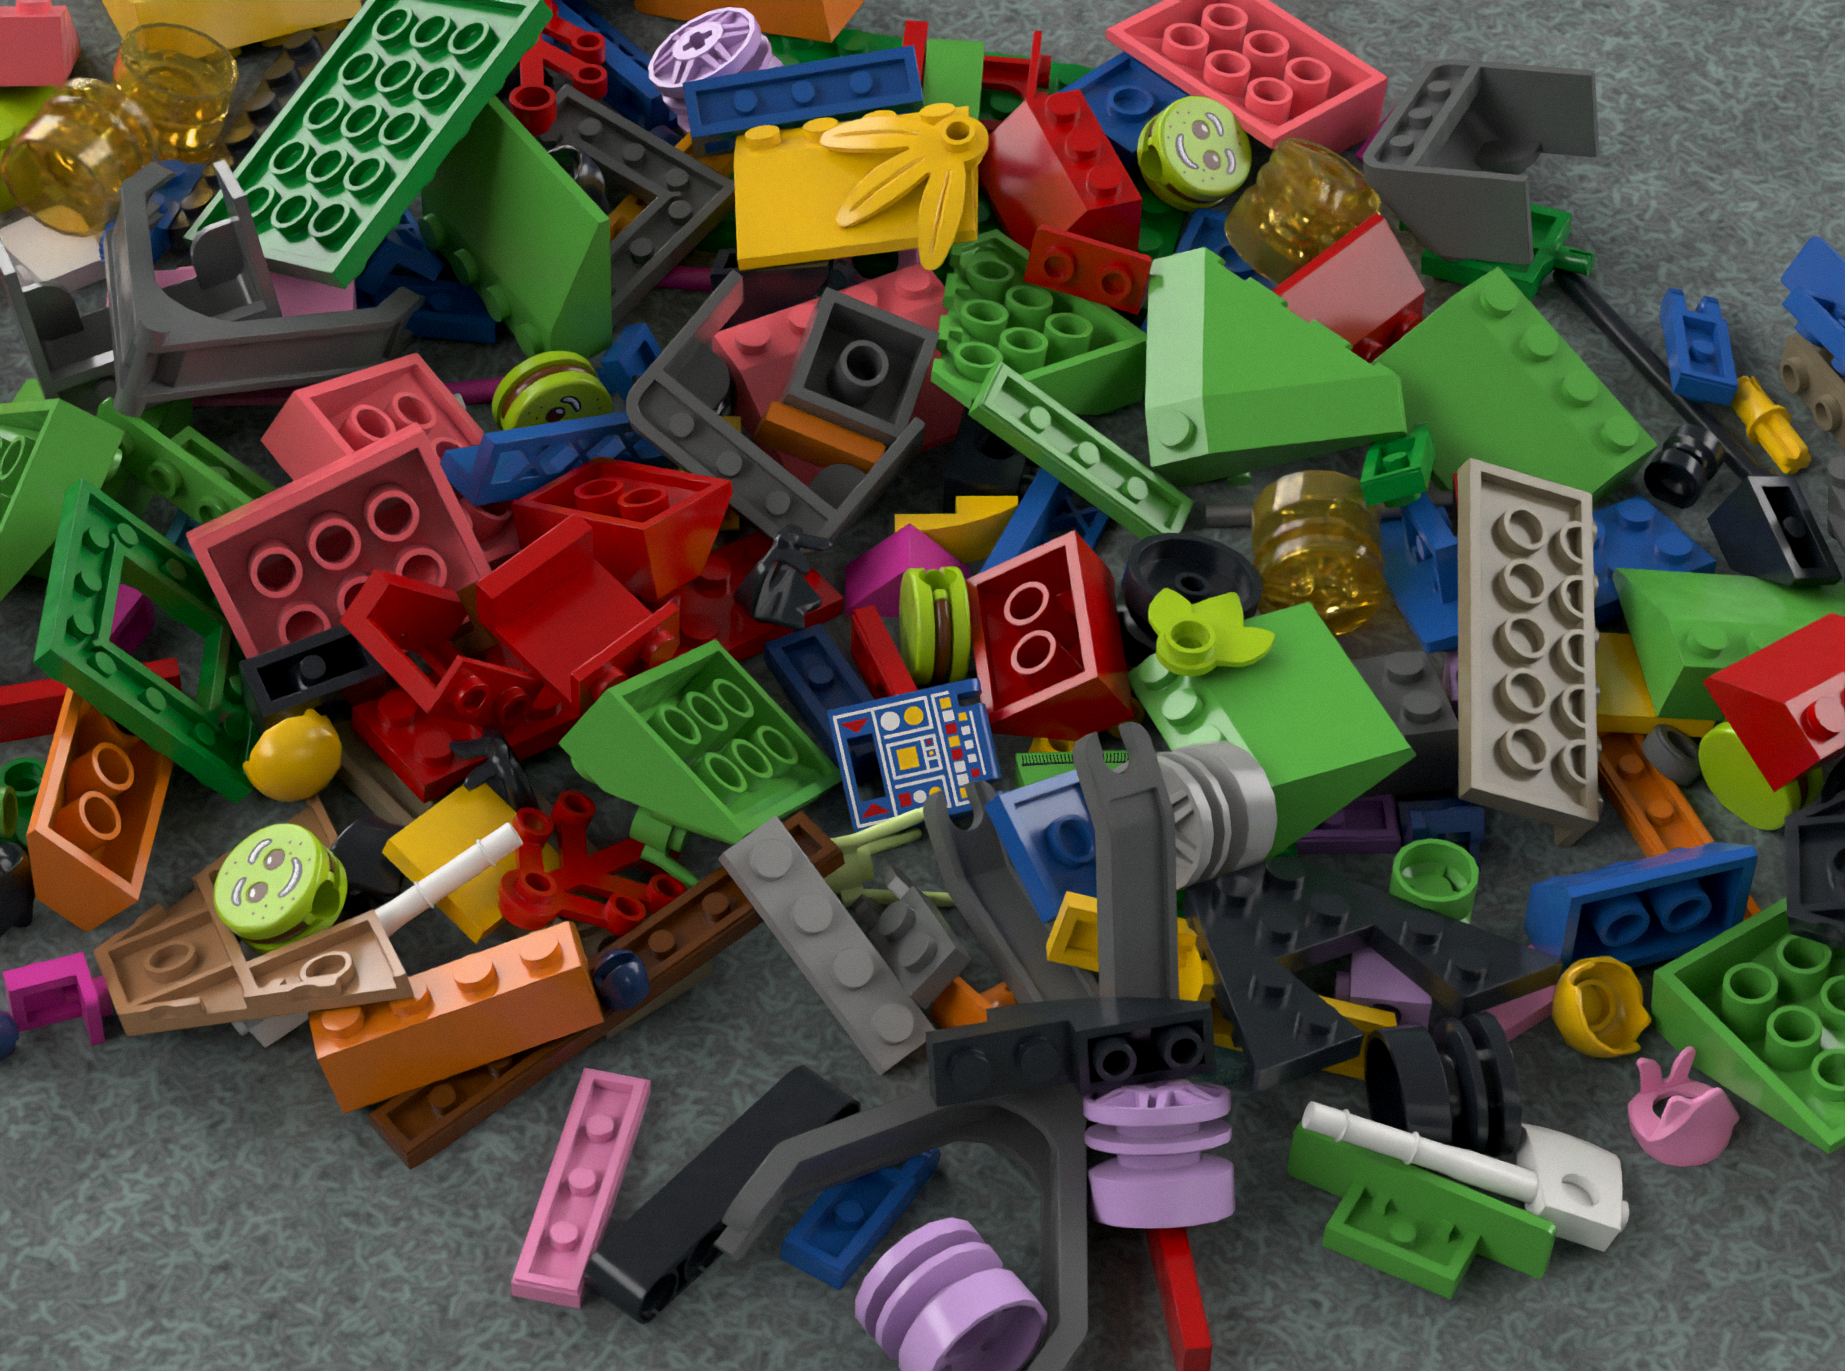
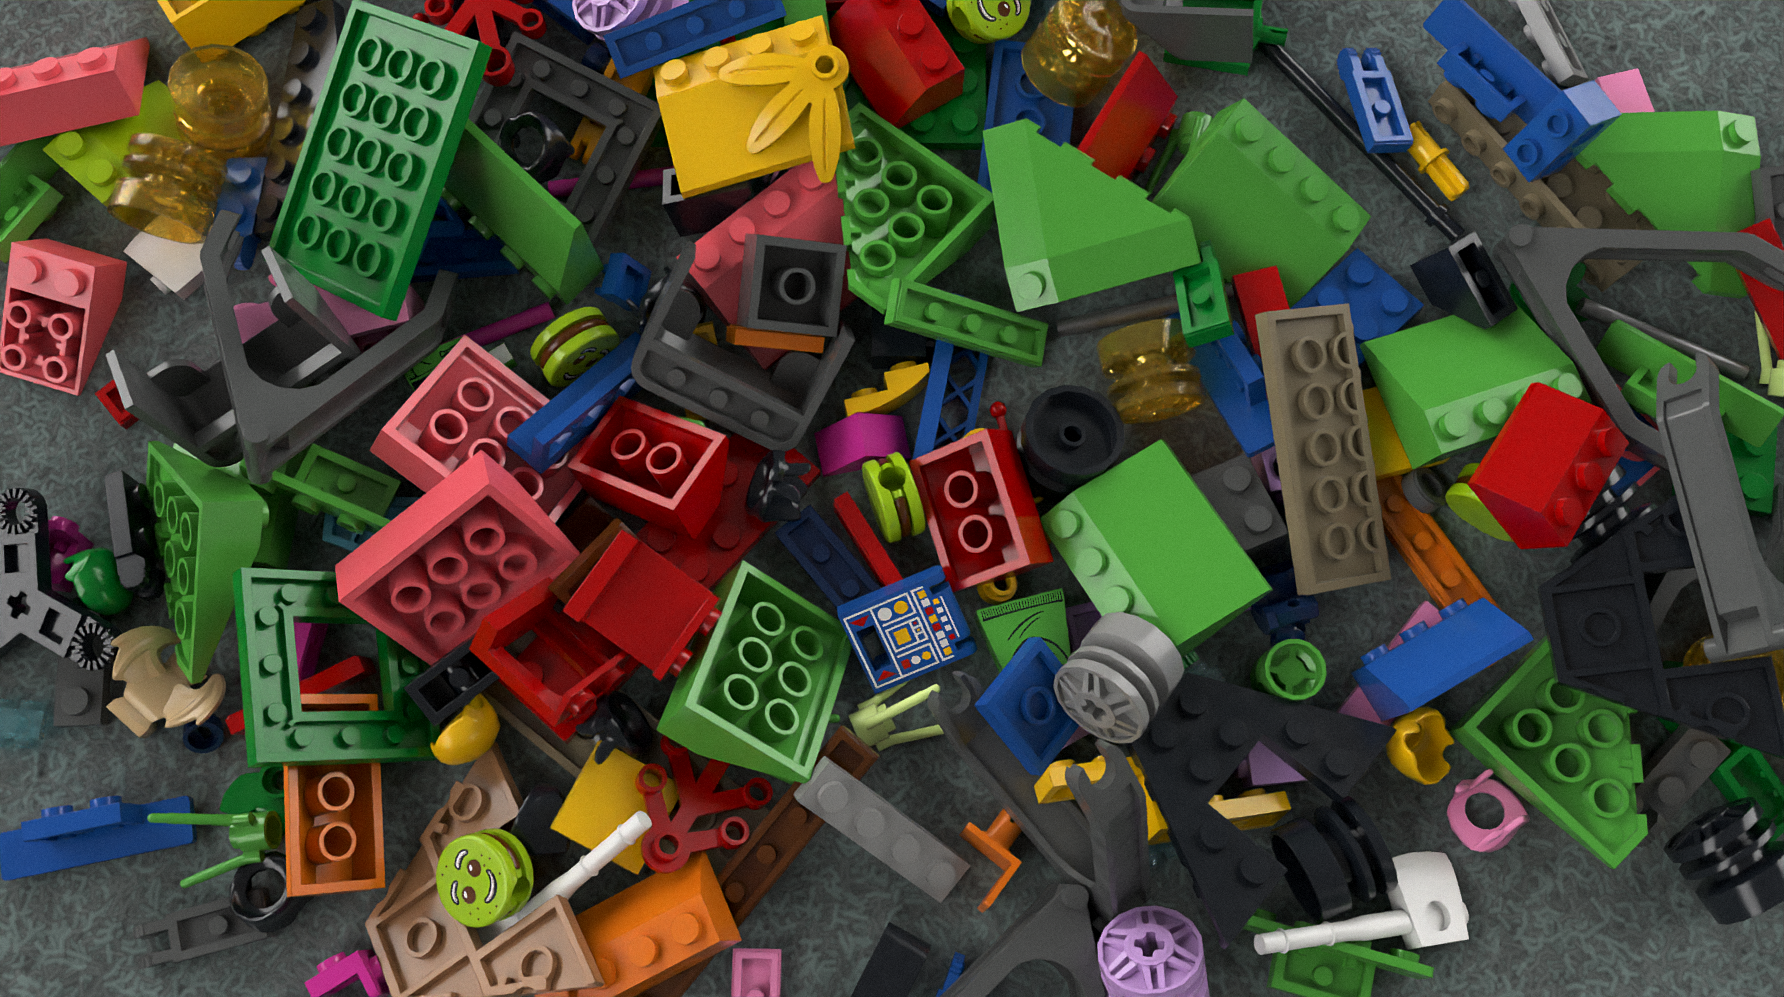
camera: 10 degrees left, 30 degrees up
(620, 979) = (750, 909): dark blue hinge -> none
(913, 938) = (938, 793): dark grey hinge -> none
(1068, 1041) = (1103, 921): black slope -> none
(1088, 269) = (938, 140): red bracket -> none
(1204, 634) = (1100, 494): lime plate -> none
(1684, 466) = (1387, 208): black wheel -> none

